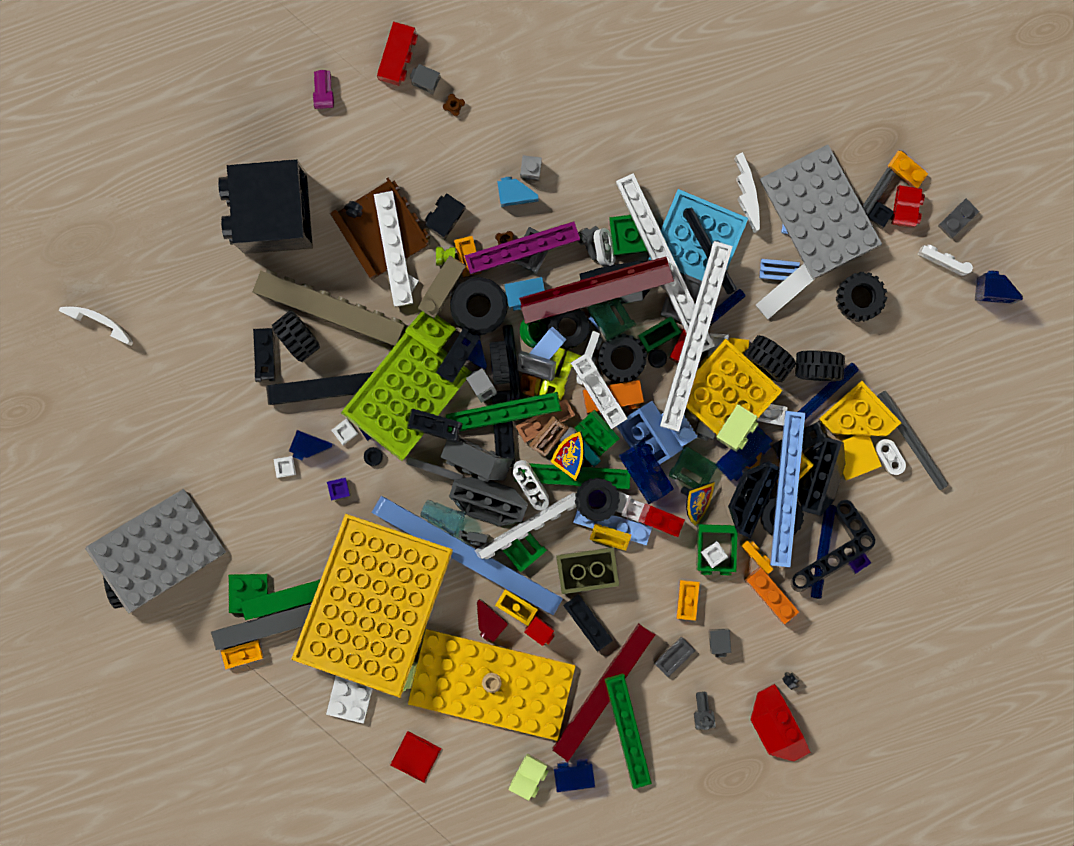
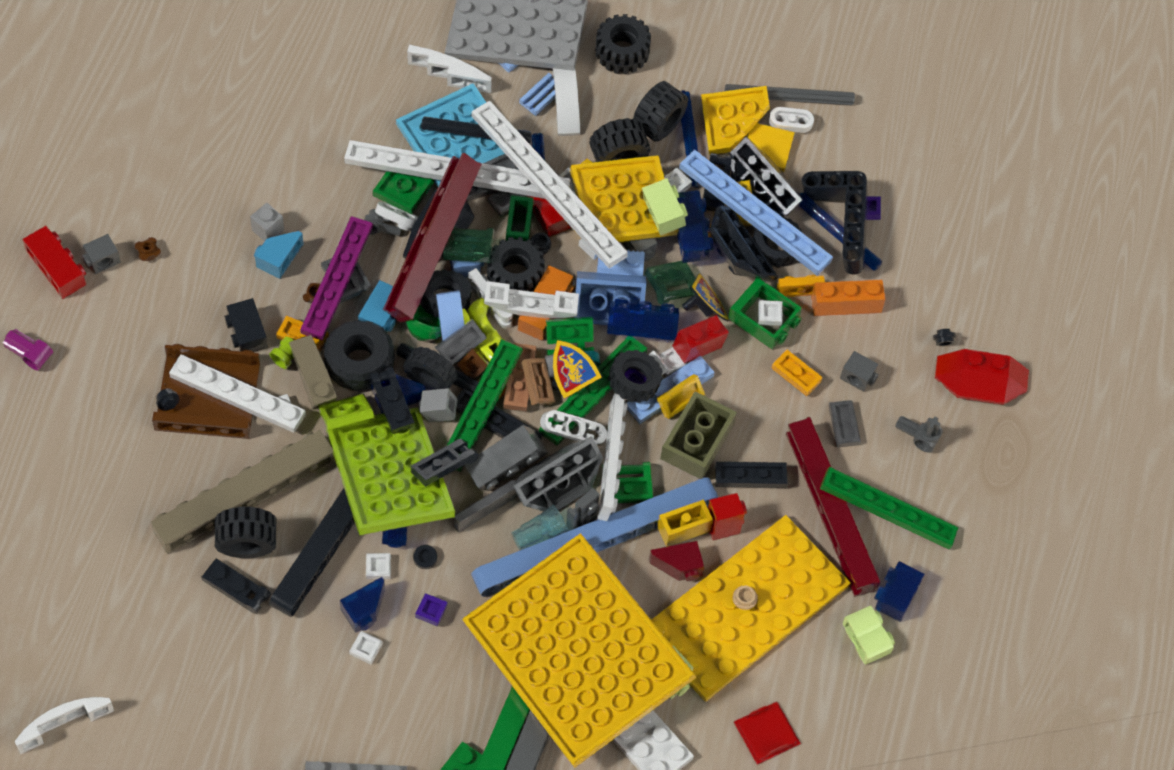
camera: 60 degrees left, 25 degrees down
(266, 206) = (98, 459): black piece -> none

